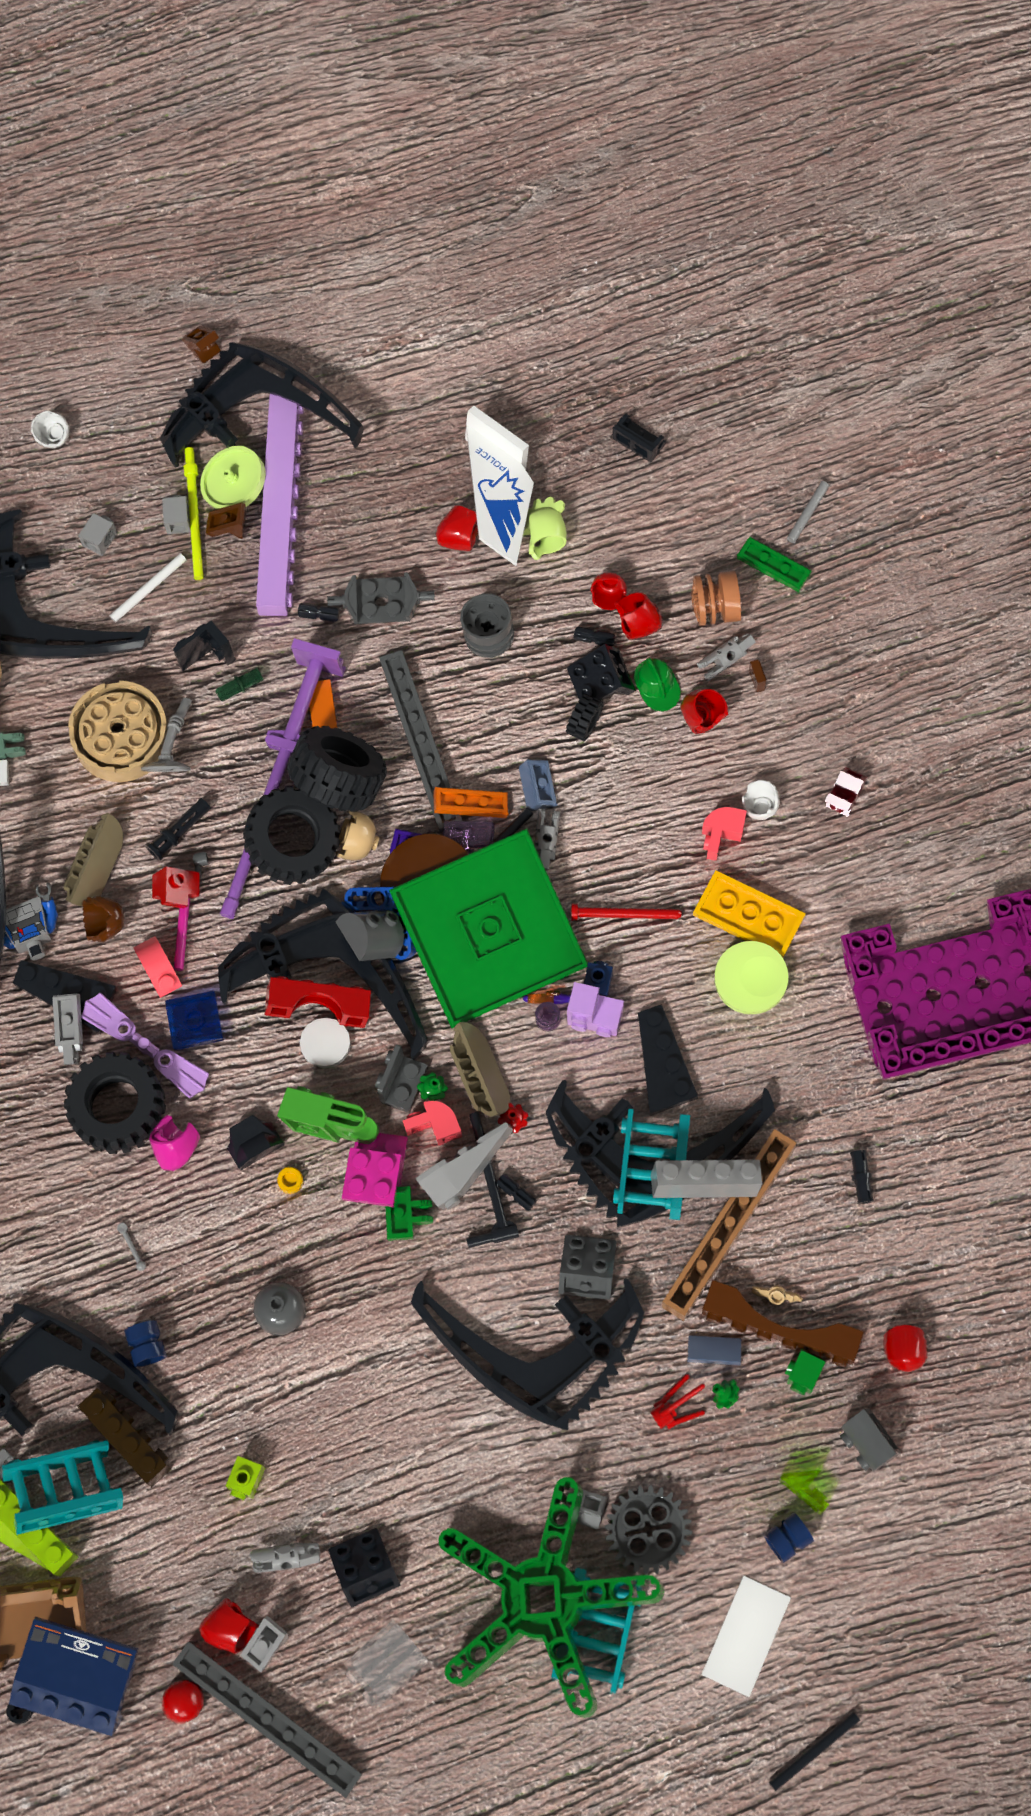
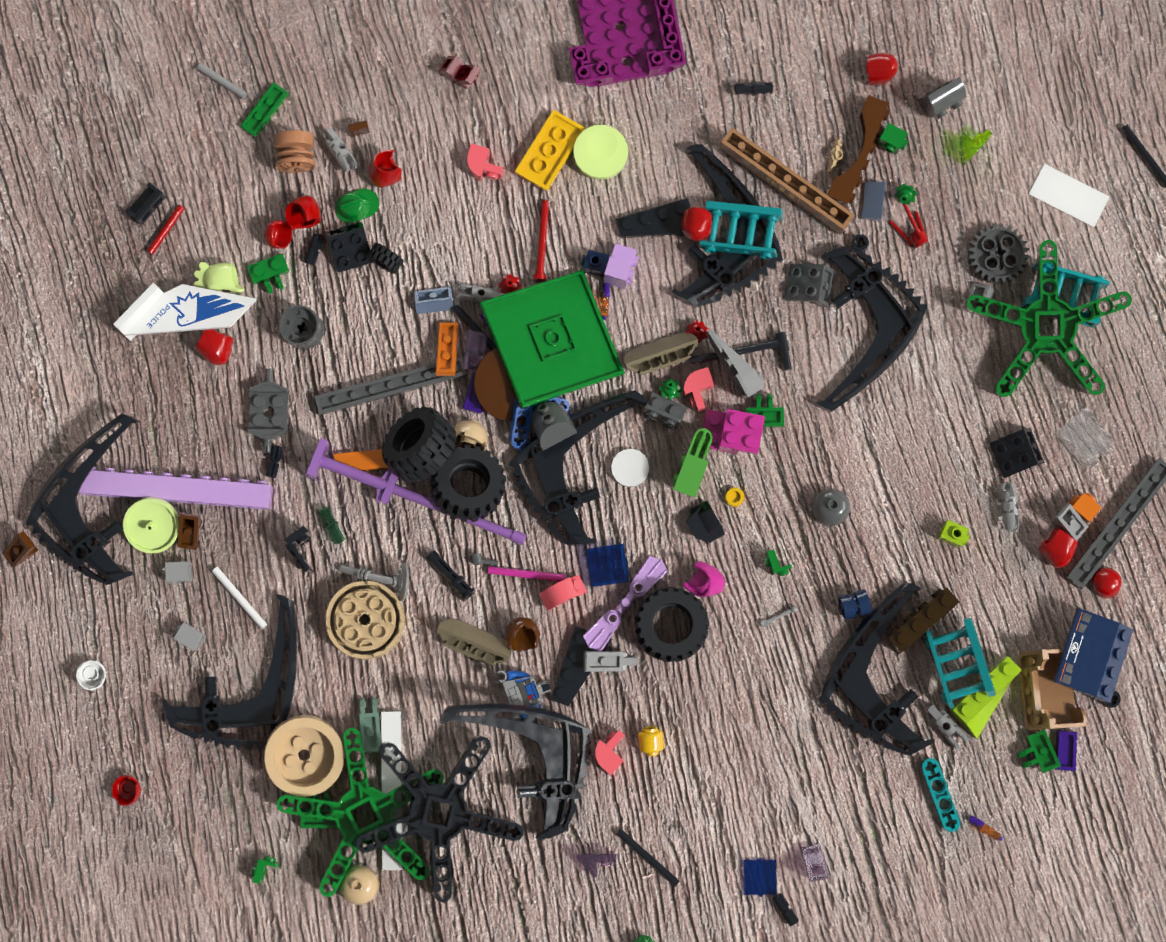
camera: 95 degrees left, 10 degrees up
(175, 886) = (501, 577): red brick -> none
(191, 473) = (139, 561): neon yellow bar -> none
(201, 1232) = (772, 562): none -> green bracket
(287, 1664) = (1085, 506): none -> orange brick
(348, 1004) = (605, 446): red arch -> none
(512, 1188) = (750, 334): black piece -> none
(547, 1022) = (621, 306): clear purple wheel -> none
(562, 875) = (509, 284): none -> red plant
(565, 586) = (268, 269): none -> green hinge
(609, 465) = (165, 230): none -> red bar
(655, 1103) = (696, 223): none -> red piece
(656, 1341) = (865, 242): none -> black bush
(706, 1178) = (761, 188): light grey brick -> none
(761, 800) = (461, 133): white hair -> none
(789, 1537) = (1007, 159): dark blue wheel -> none

